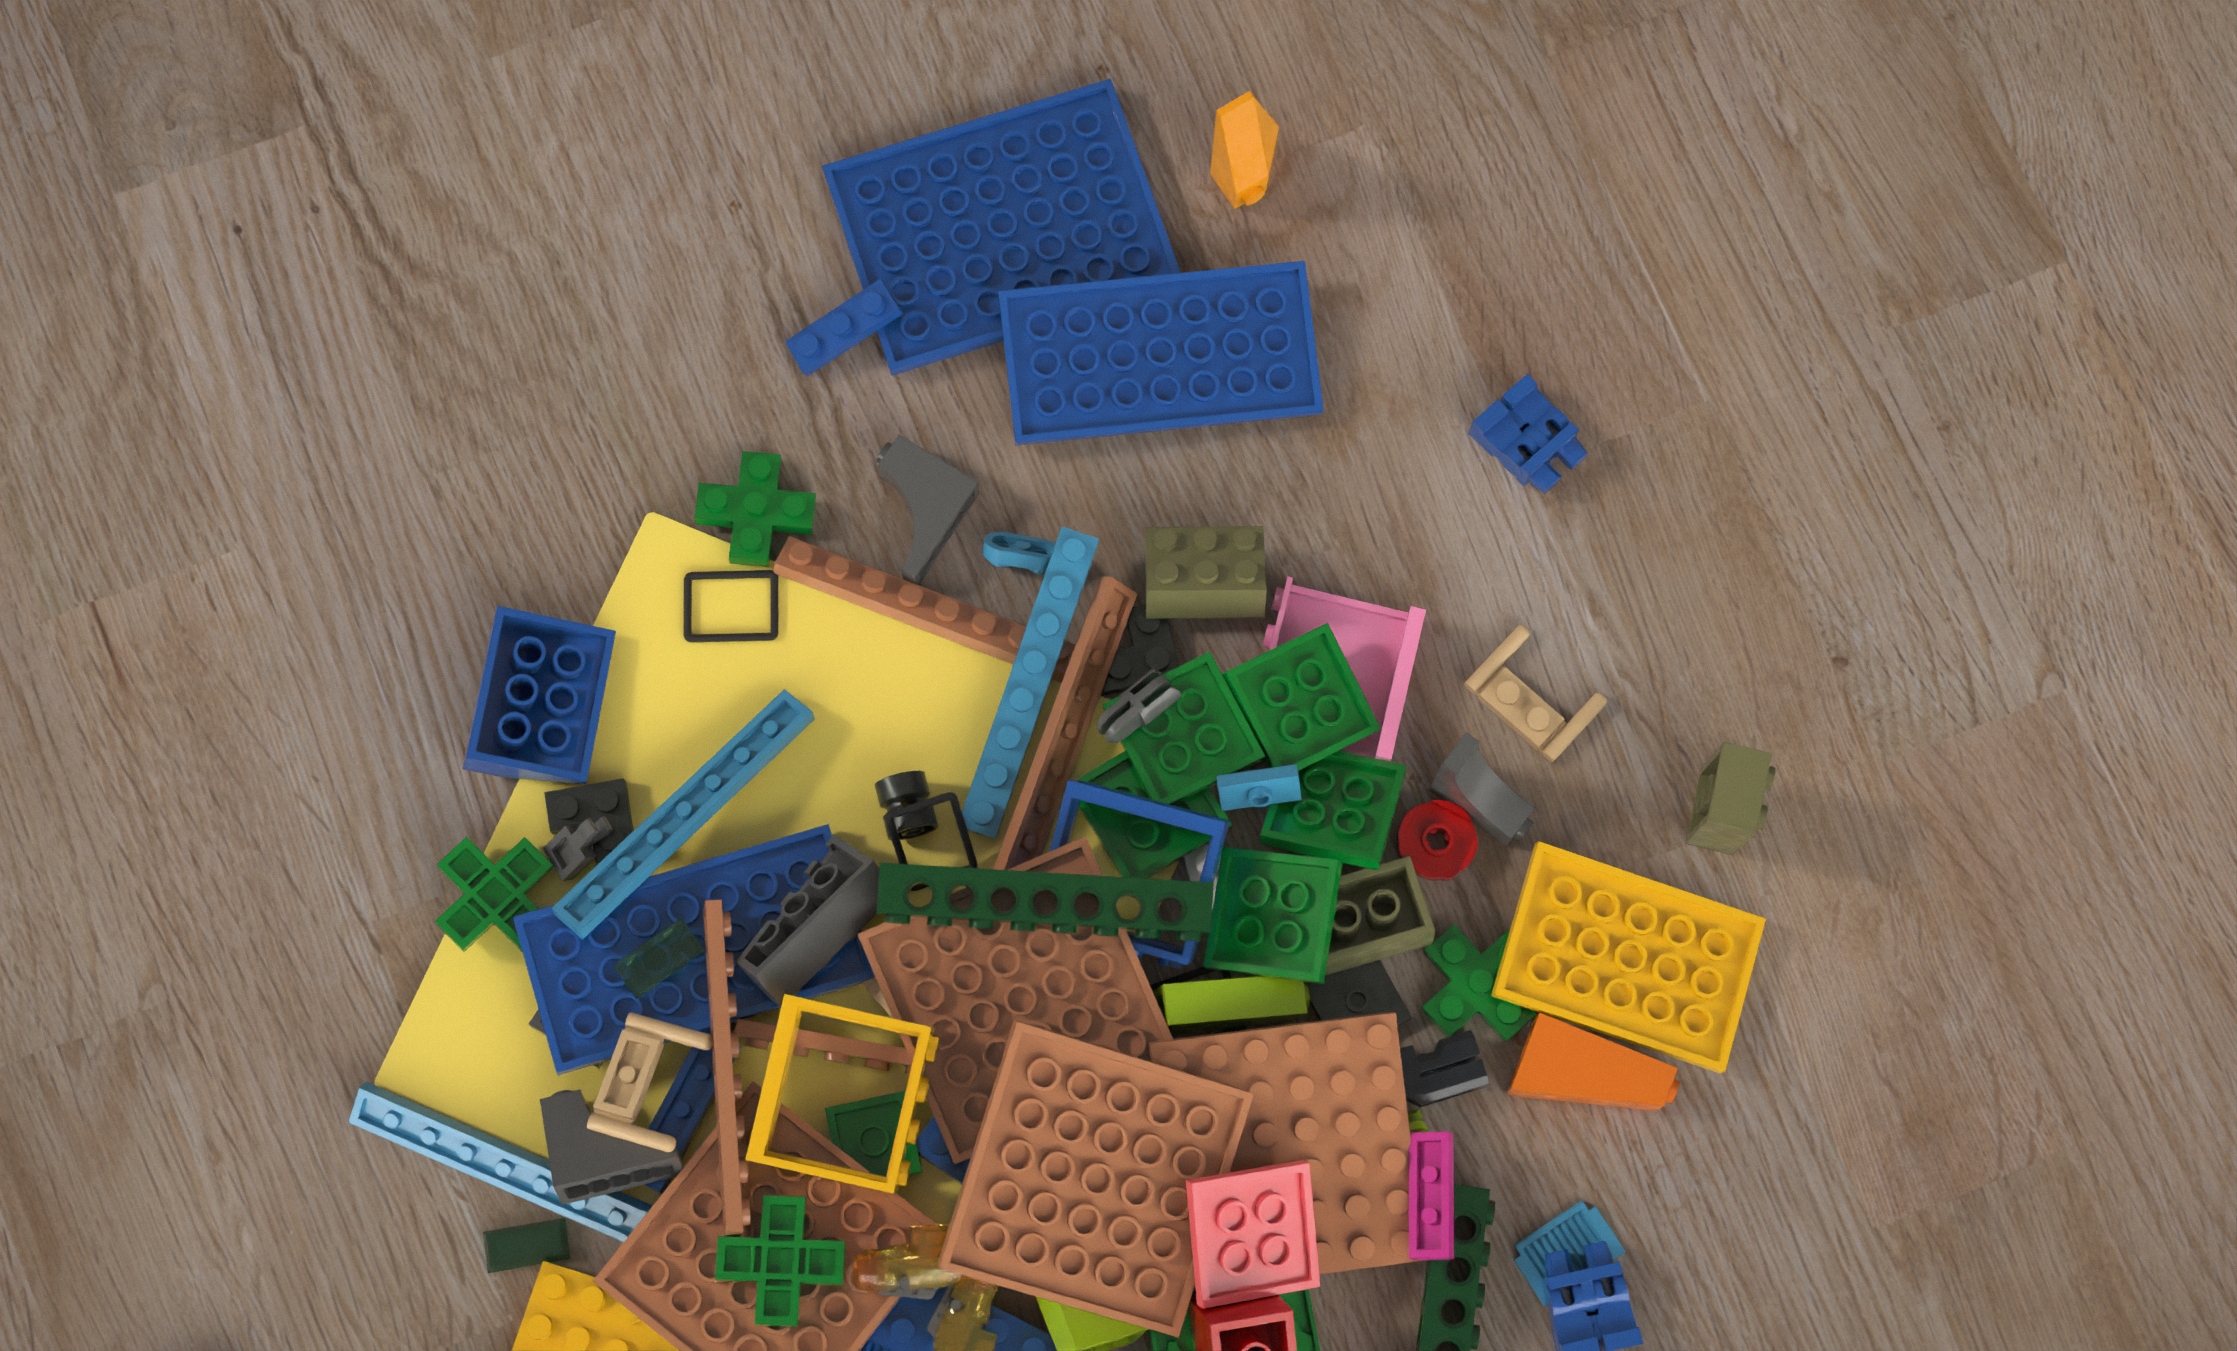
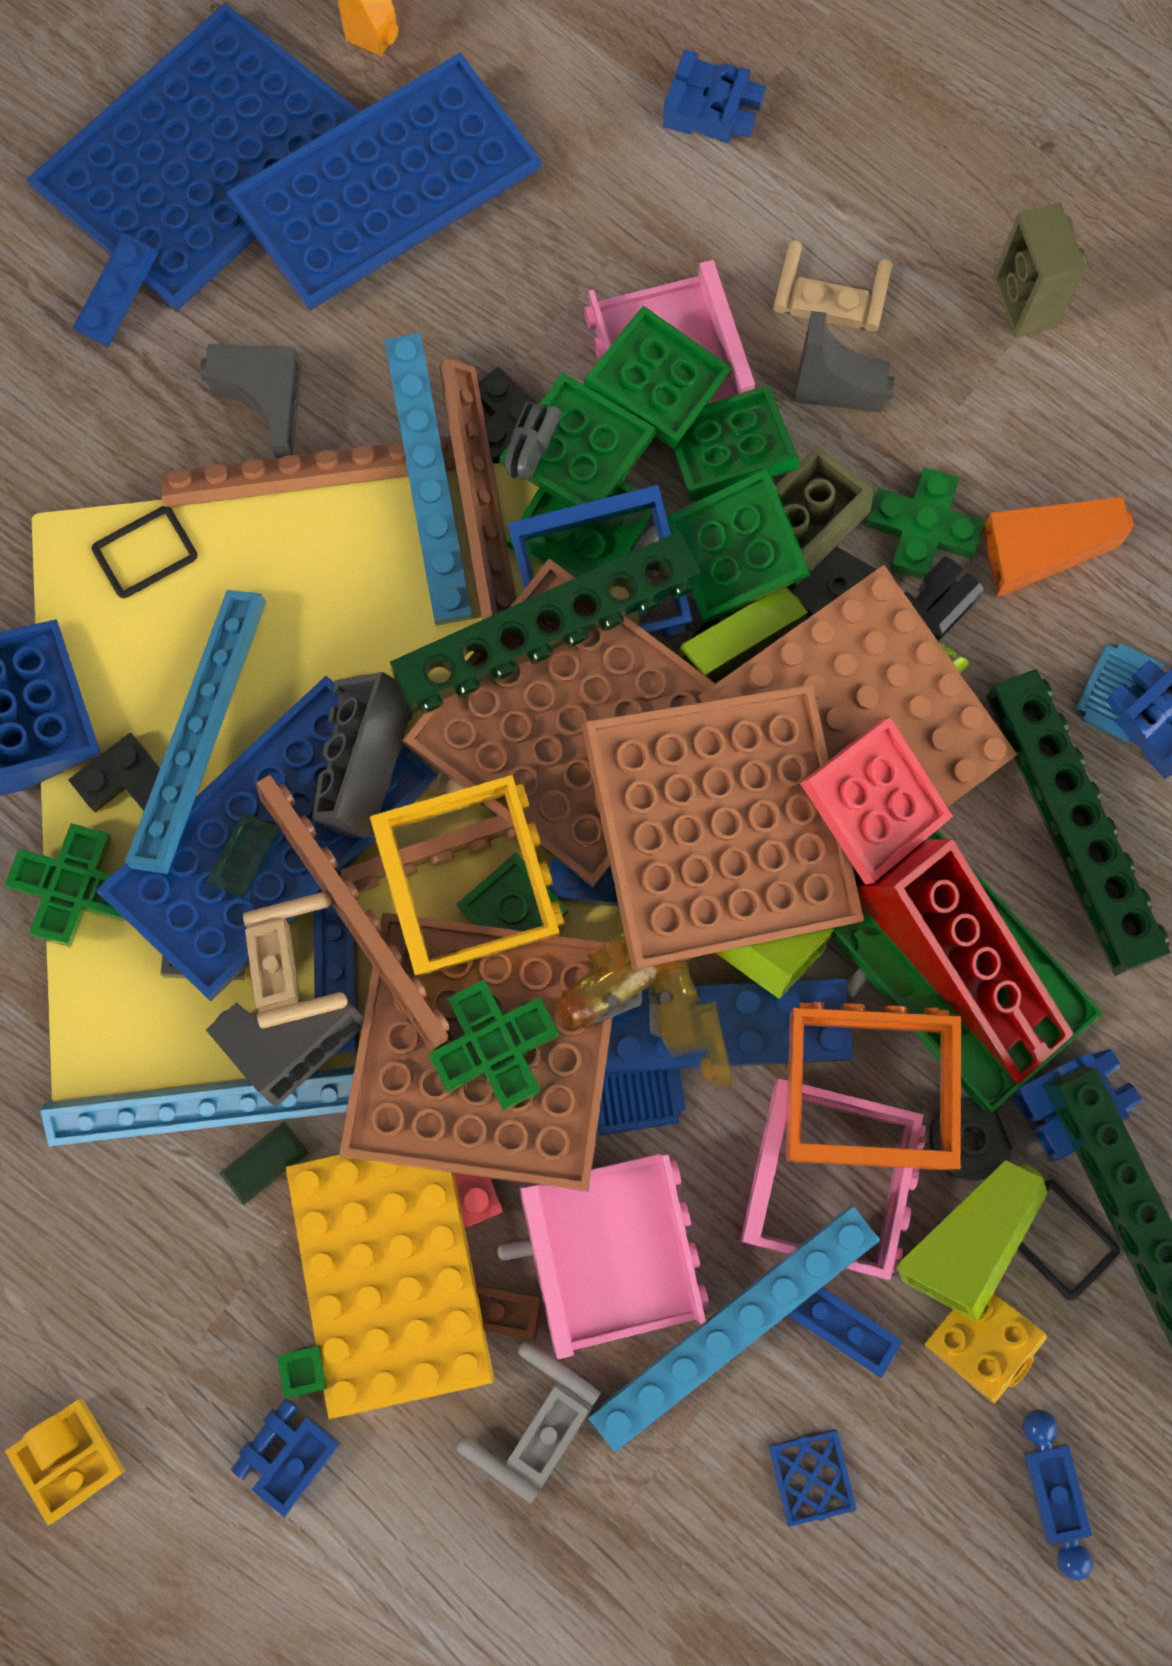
camera: 25 degrees left, 0 degrees up
(571, 847) = (117, 810): dark grey plate -> none
(755, 508) = (121, 467): green plate -> none
(889, 818) = (396, 610): black piece -> none
(903, 790) = (378, 621): pearl dark grey wheel -> none
(1018, 550) = (349, 391): dark azure plate -> none
(1205, 572) = (520, 322): olive brick -> none
(1259, 787) = (665, 454): dark azure plate -> none
(1431, 1196) = (996, 697): dark pink plate -> none
(1458, 833) = (839, 418): red plate -> none
(1629, 957) = (1030, 437): yellow plate -> none

